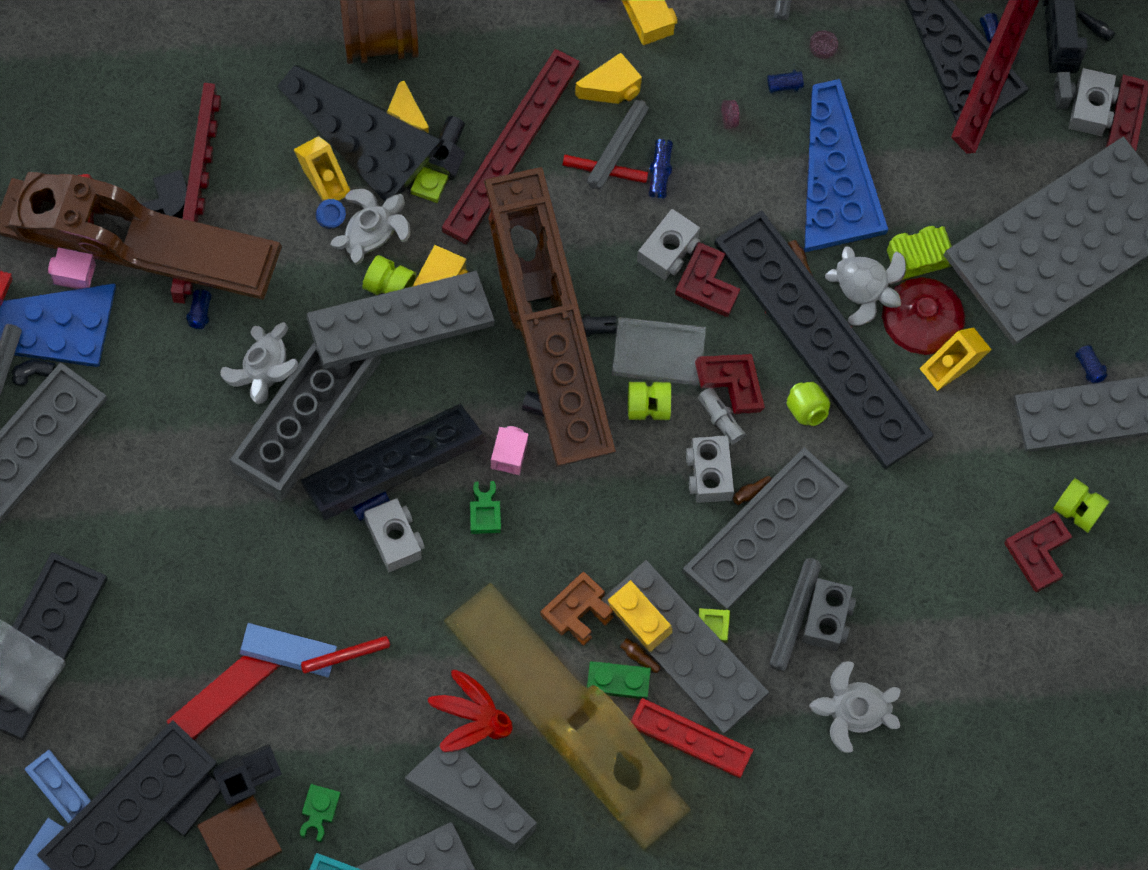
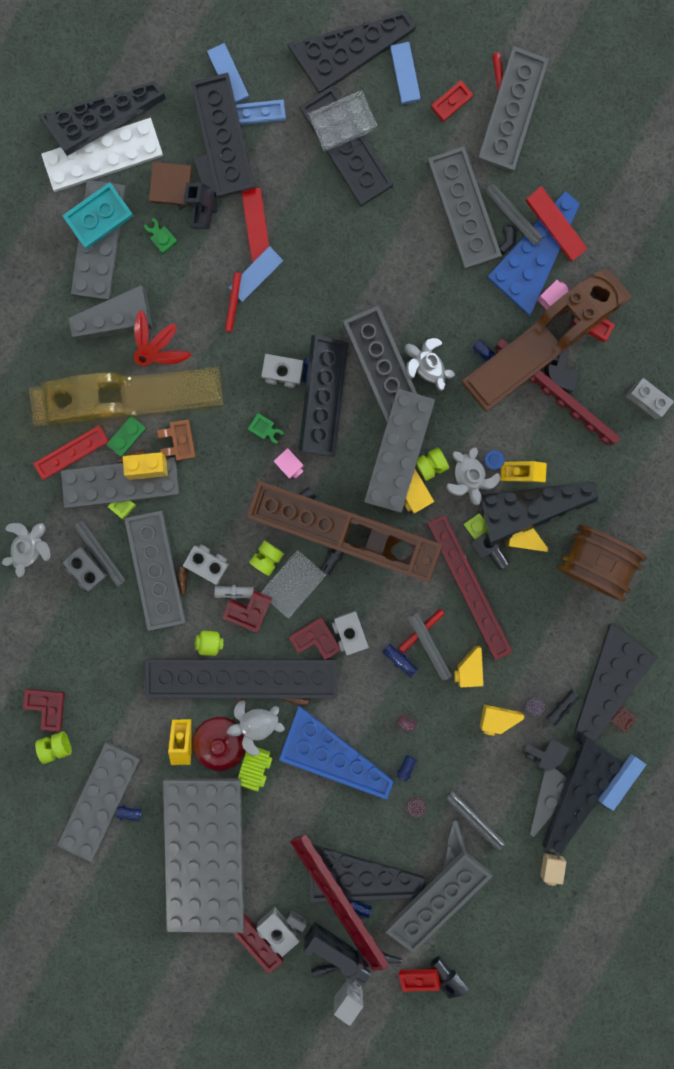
camera: 135 degrees right, 20 degrees up
(130, 82) = (649, 398): none -> light grey brick

